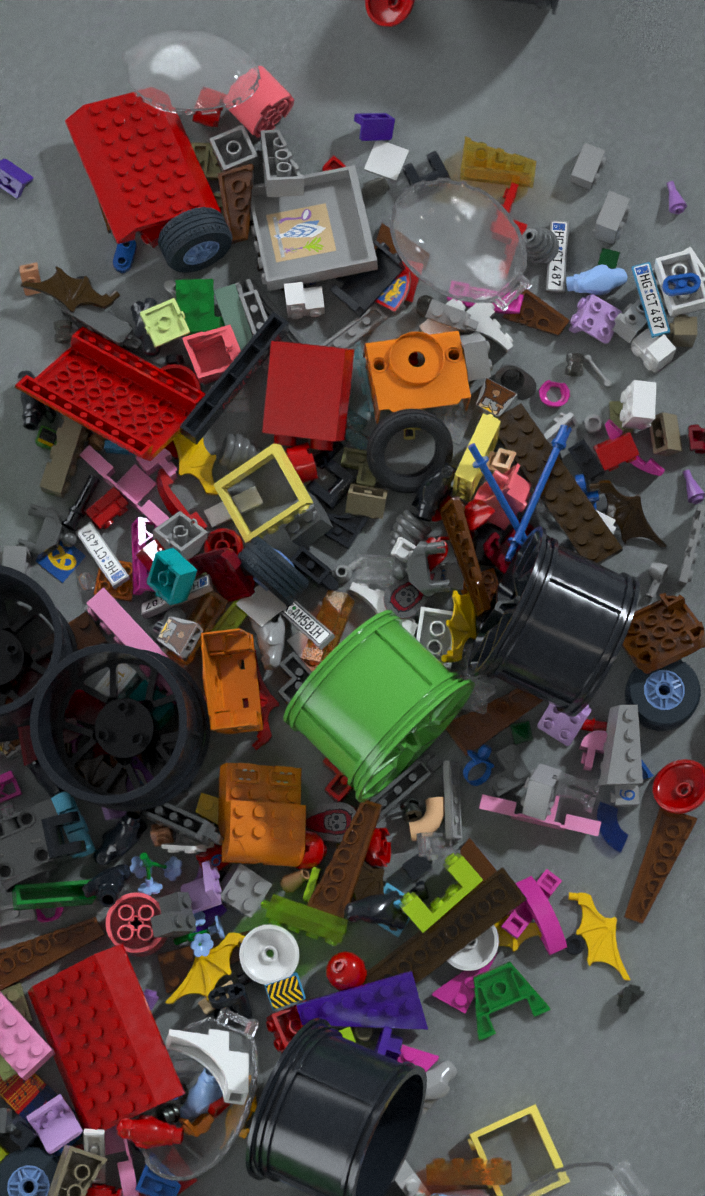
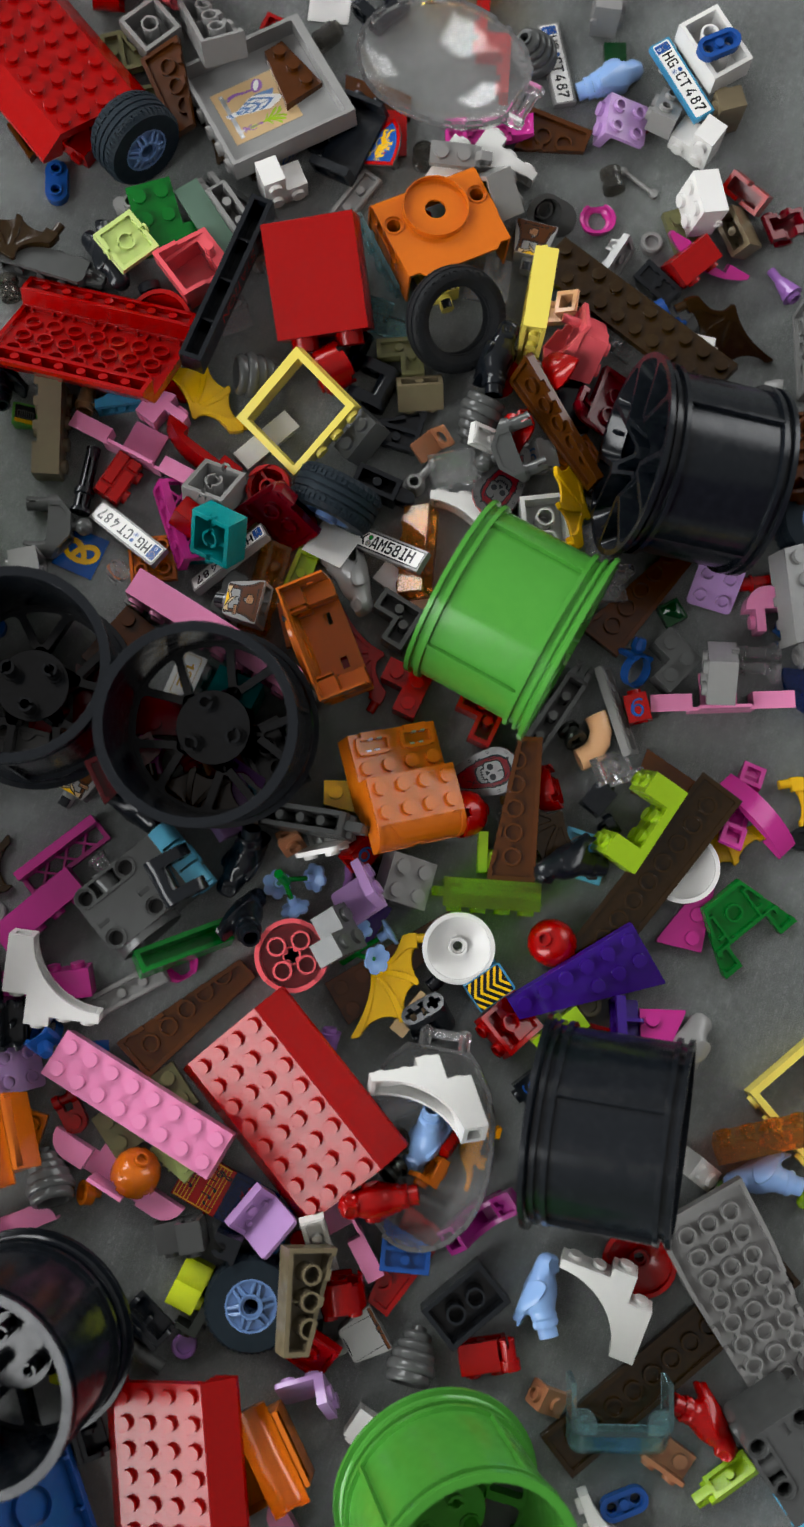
camera: 25 degrees left, 5 degrees up
(220, 1177) = (494, 1209): none -> magenta arch
(291, 741) = (411, 689): none -> red brick
(292, 881) = (460, 853): medium nougat cone -> none
(336, 214) = (292, 76): none -> reddish brown wing
(364, 543) = (431, 443): none -> nougat bracket
(469, 802) = (637, 707): none -> red brick
(480, 462) = (551, 301): blue bar -> none
(558, 444) = (625, 268): blue bar -> none
(679, 396) = (741, 187): none -> piece

